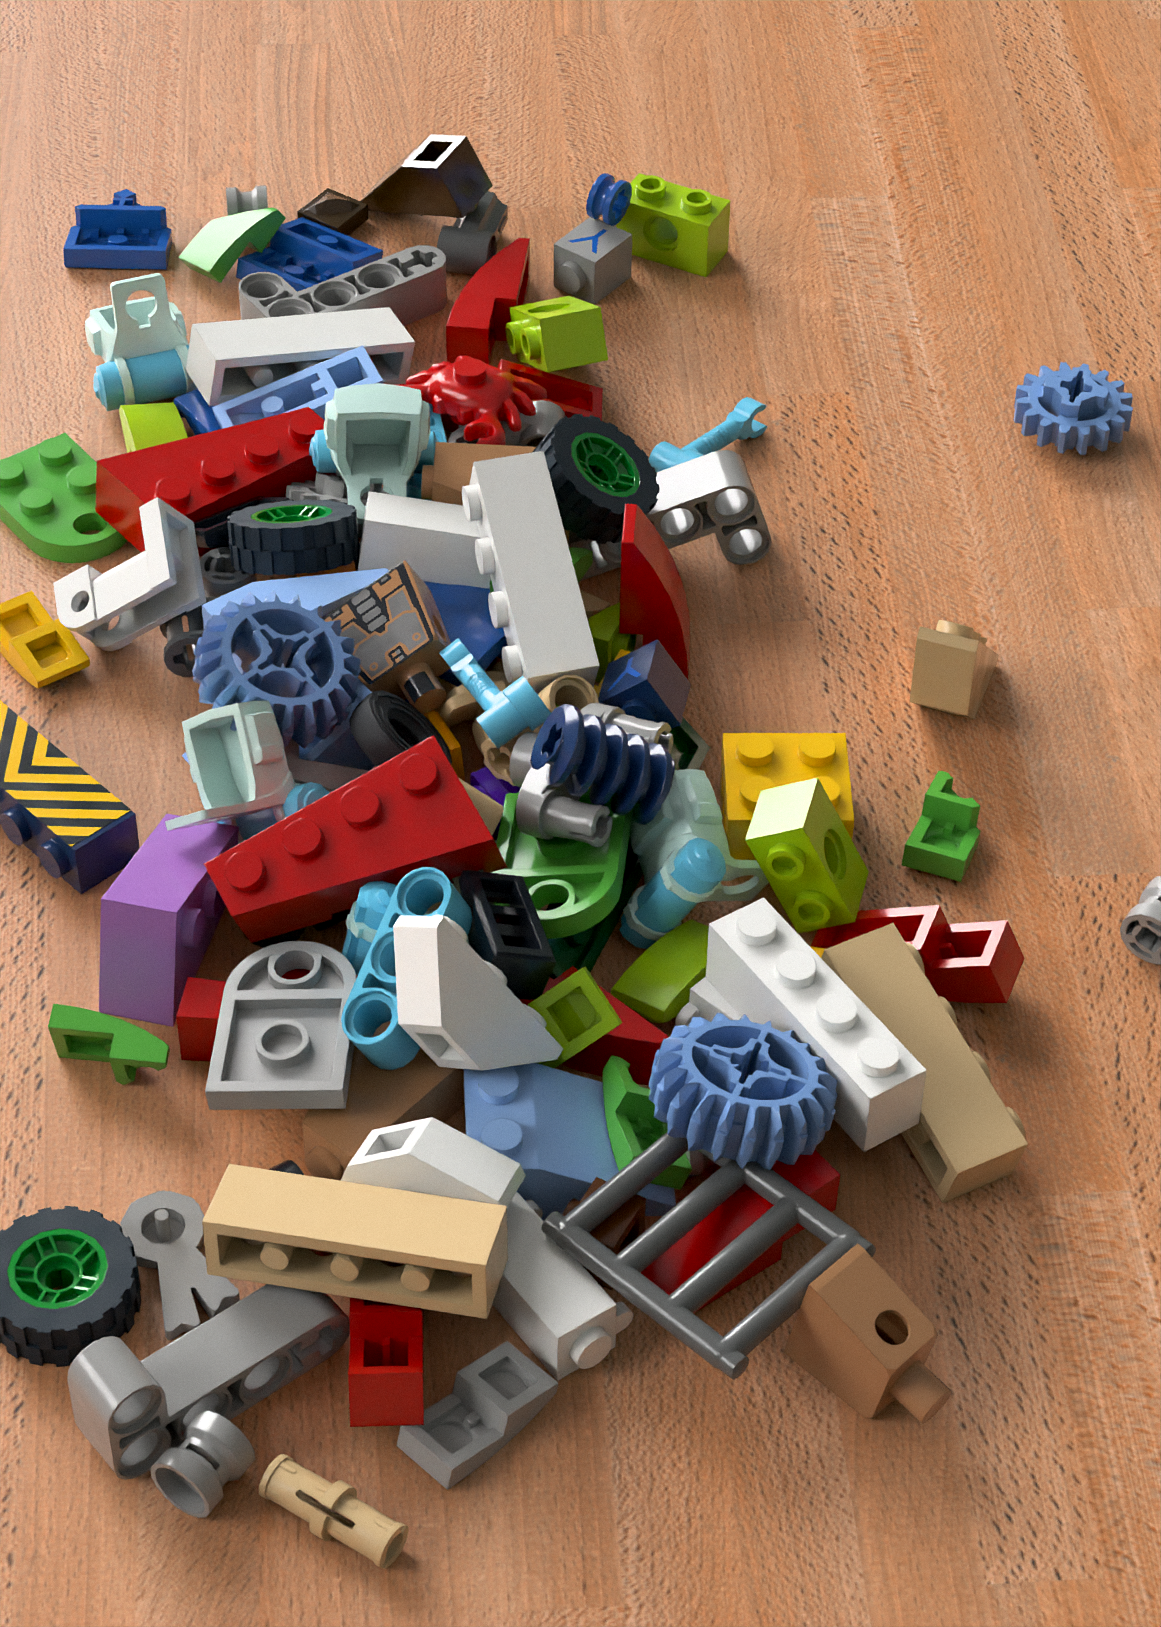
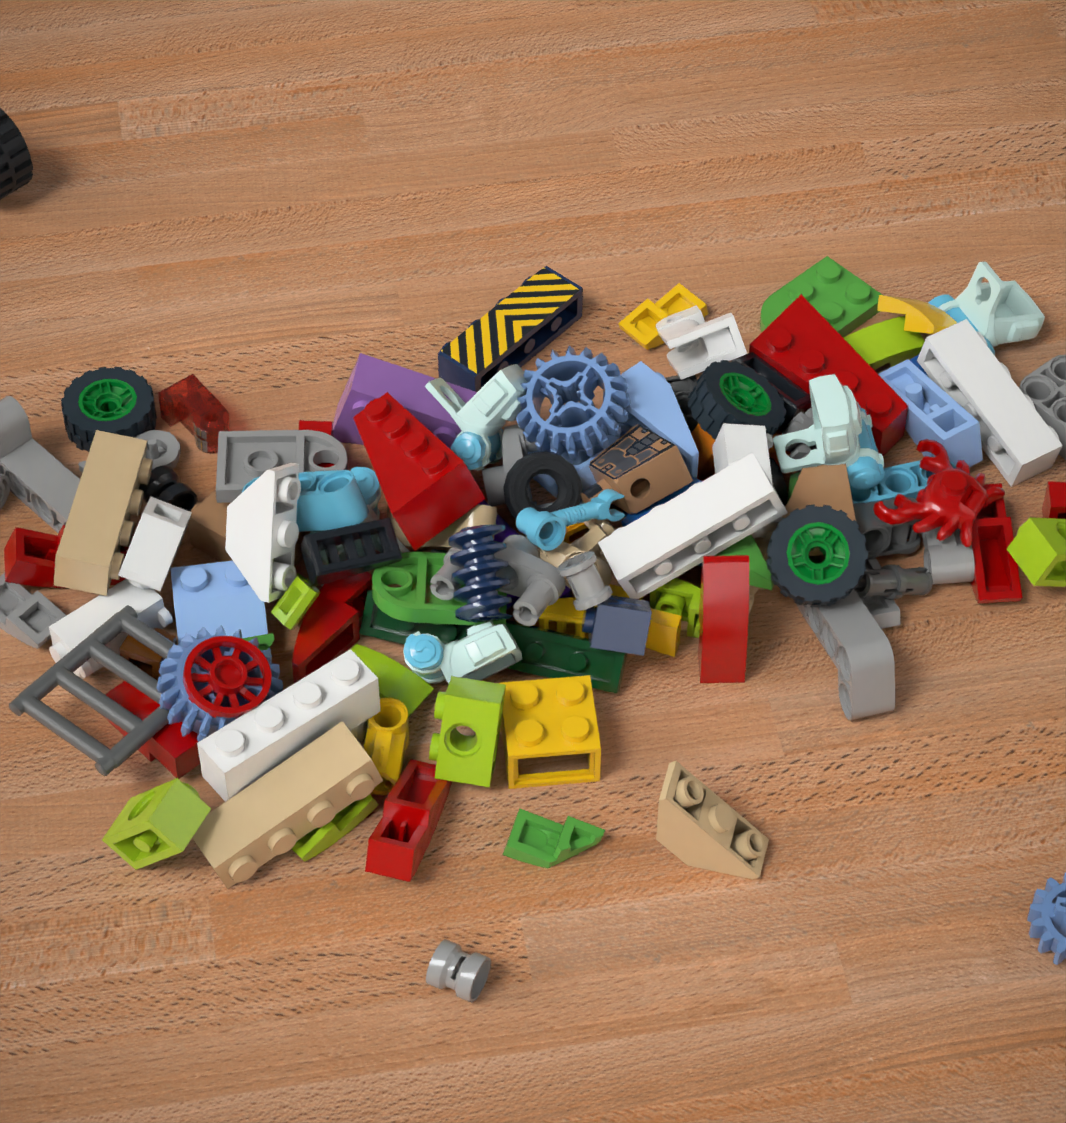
camera: 85 degrees right, 5 degrees up
(102, 1160) = (197, 410): none -> clear red leg
(104, 1038) = (296, 400): bright green slope -> none
(150, 380) = (919, 315): none -> yellow slope
(605, 689) = (585, 580): none -> light grey bush
(738, 425) = (942, 655): medium azure brick -> none
(761, 1049) = (226, 676): none -> red wheel
(866, 1340) = (53, 785): medium nougat torso -> none
(984, 1175) = (157, 823): none -> lime brick

